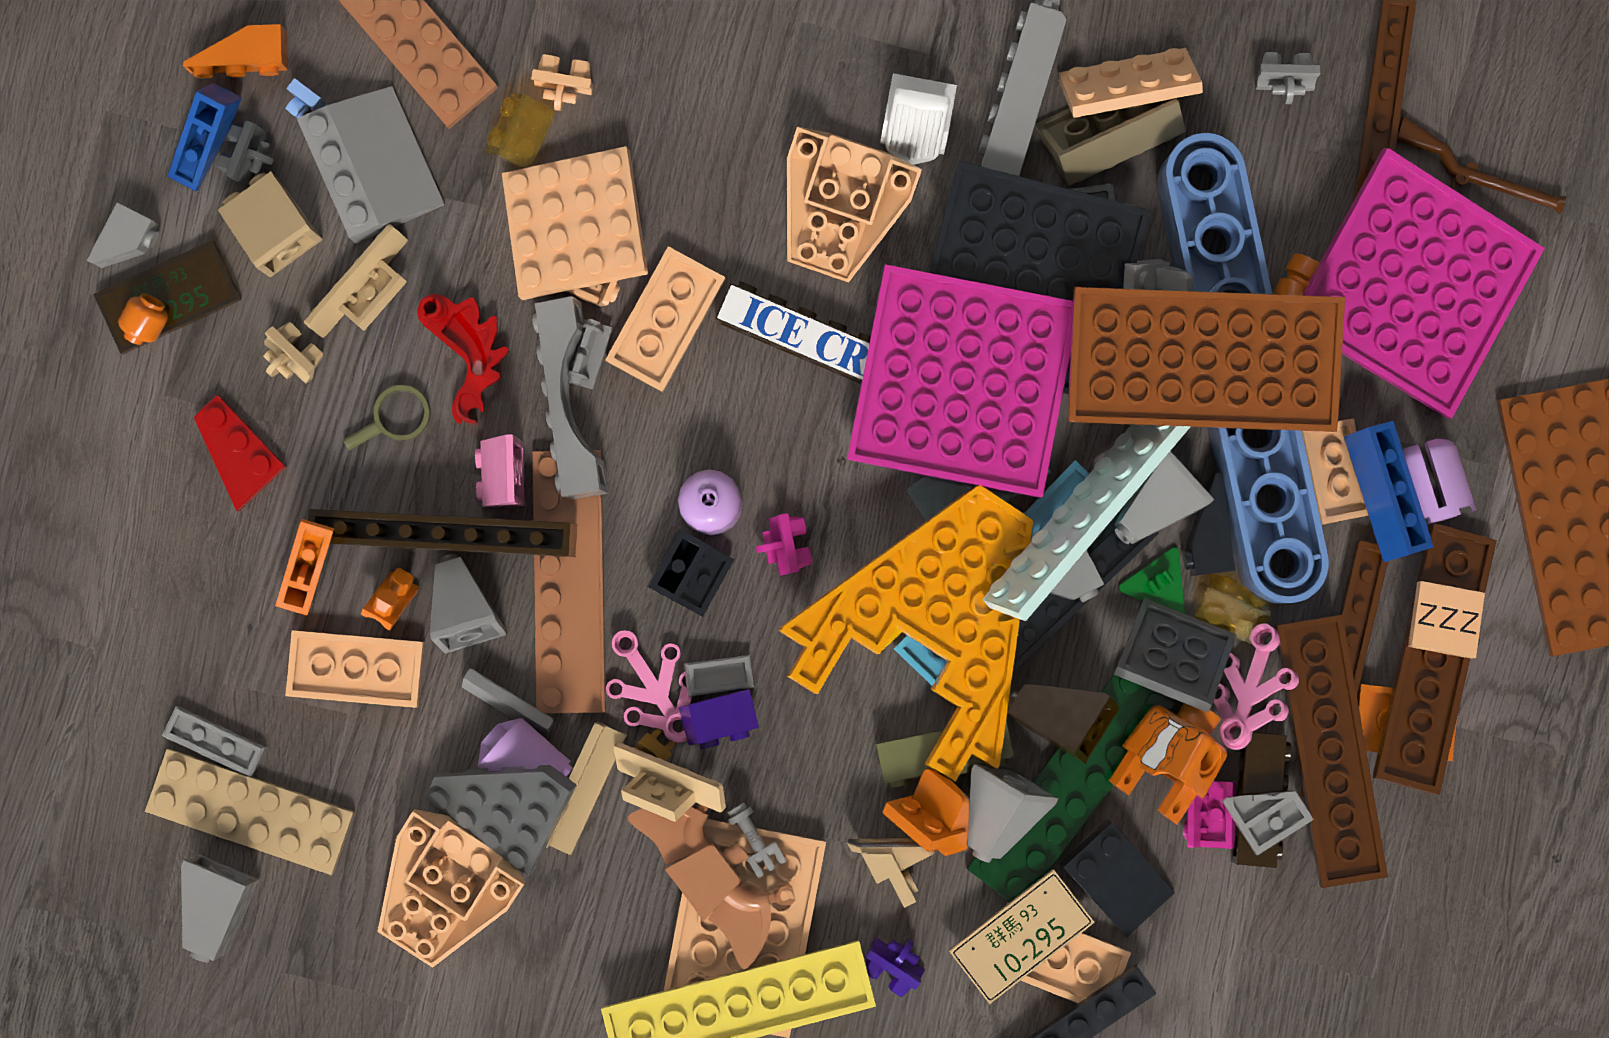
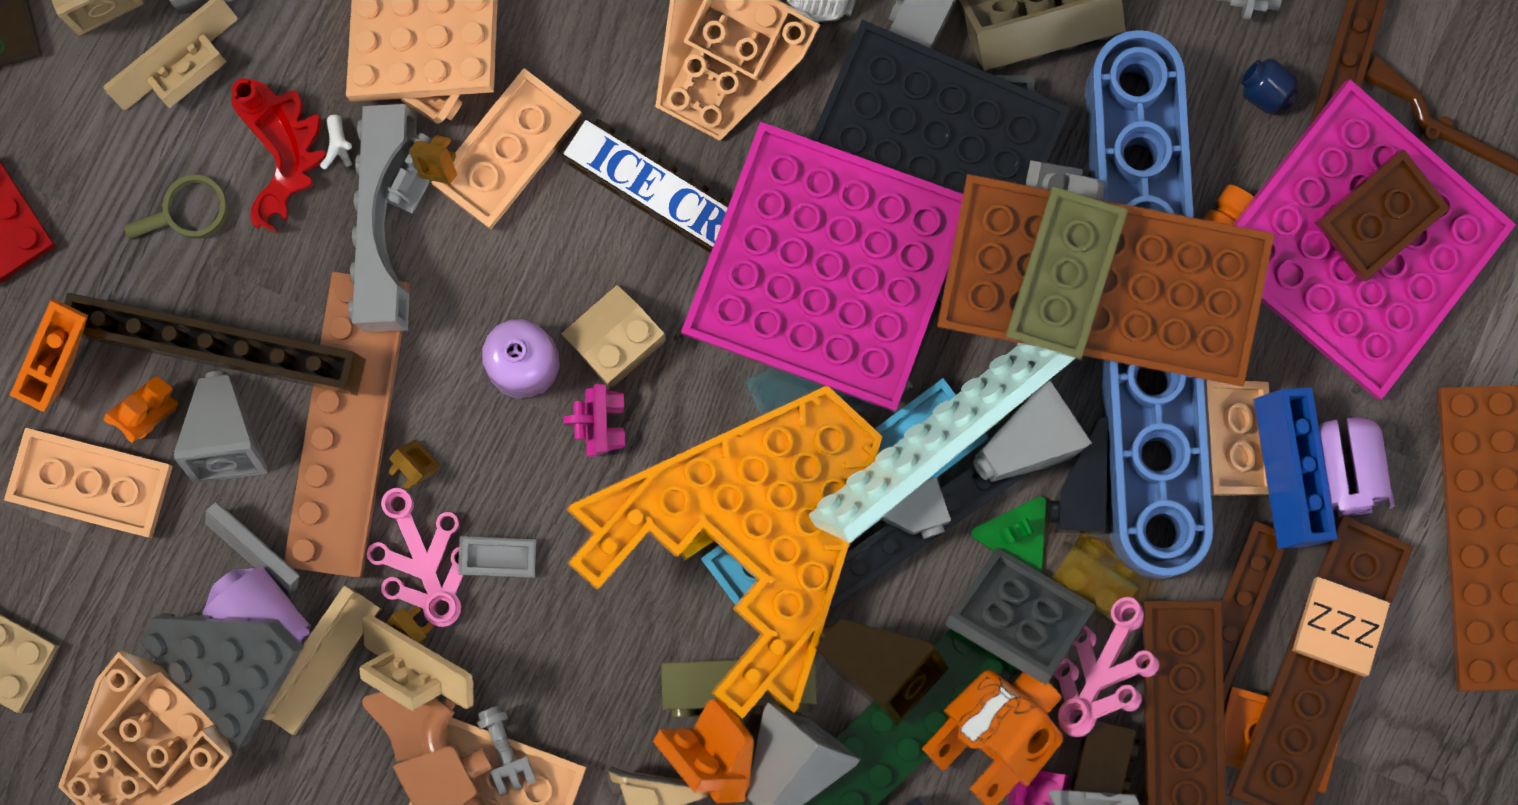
camera: 20 degrees right, 5 degrees down
(286, 358) = (75, 108): tan hips -> none
(501, 472) = (293, 287): bright pink slope -> none
(517, 338) = (337, 143): none -> white bar
(606, 341) = (434, 160): none -> pearl gold tile
(633, 606) = (414, 463): none -> pearl gold tile
(690, 572) = (484, 434): black brick -> none
(719, 717) = (487, 604): dark purple brick -> none
(786, 468) = (614, 336): none -> tan slope
(1173, 360) = (1066, 272): none -> olive plate
(1316, 160) = (1269, 86): none -> dark blue head
(1431, 261) = (1382, 215): none -> reddish brown plate

